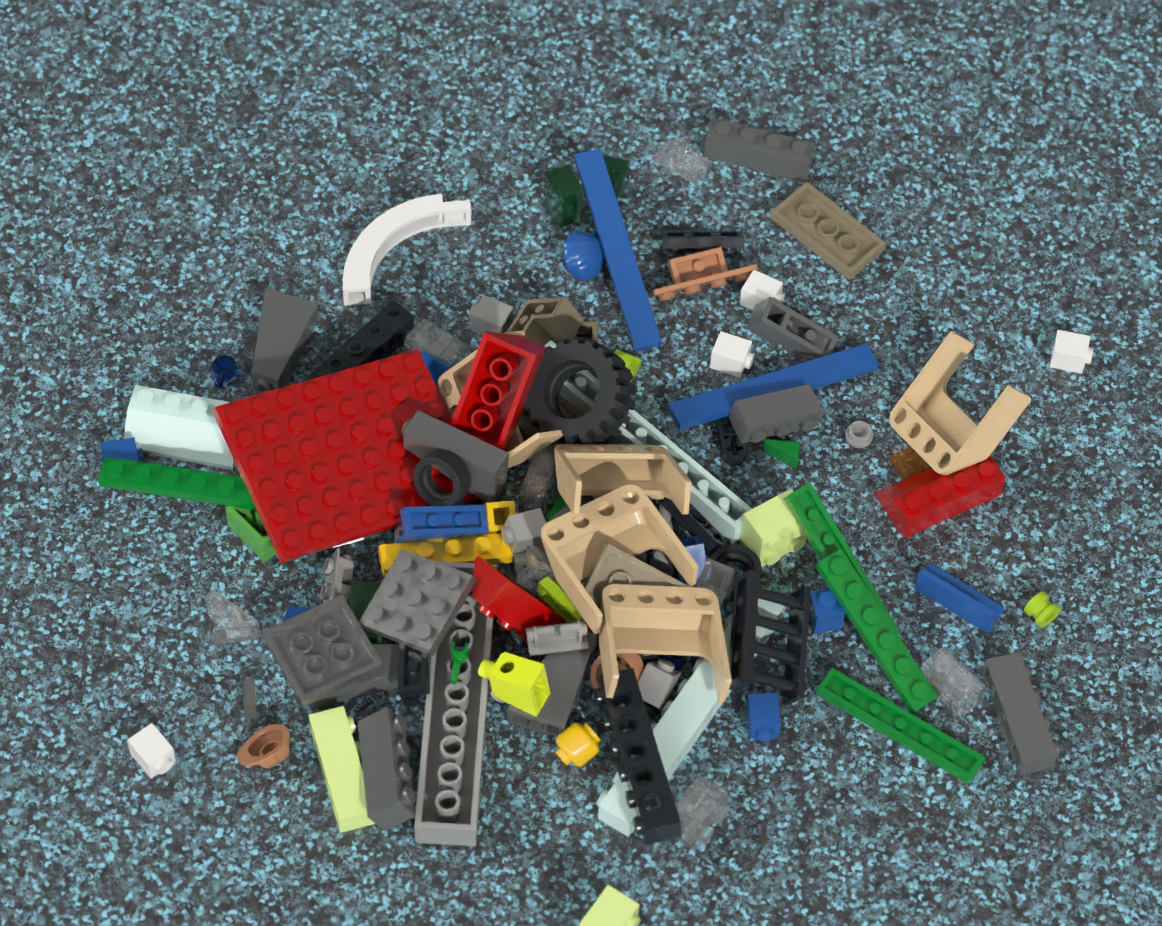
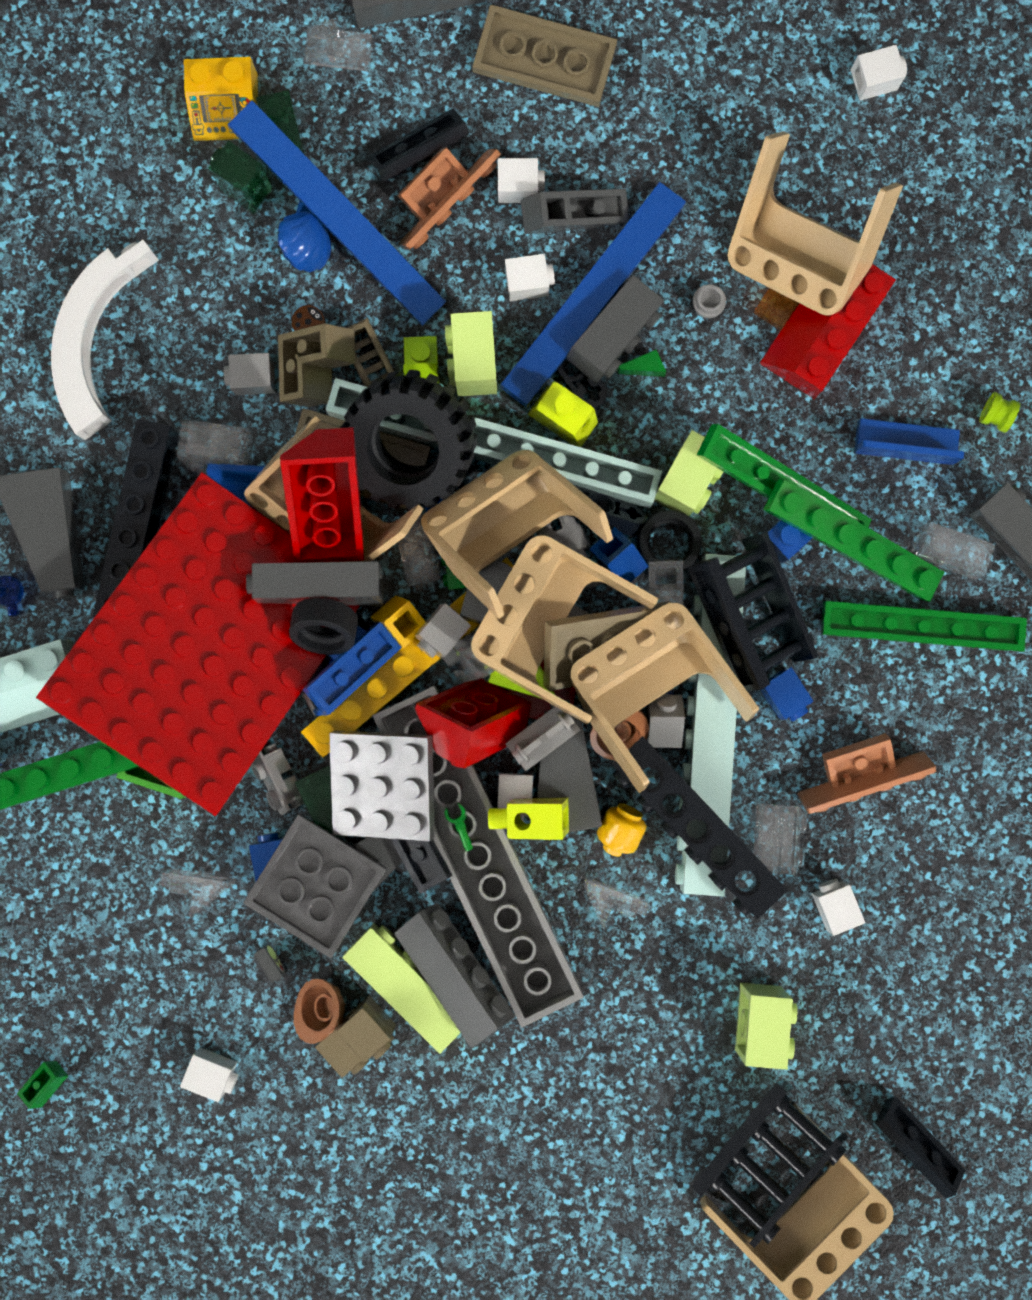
camera: 25 degrees left, 30 degrees up
(22, 693) = (42, 1084): none -> green piece
(282, 780) = (360, 1036): none -> dark tan brick
(538, 786) = (604, 896): none -> clear slope
(578, 136) = (216, 93): none -> yellow slope
(660, 376) = (473, 360): none -> yellowish green brick
(704, 441) = (564, 414): none -> neon yellow torso
(716, 886) = (837, 906): none -> white brick
(794, 796) = (863, 770): none -> nougat bracket

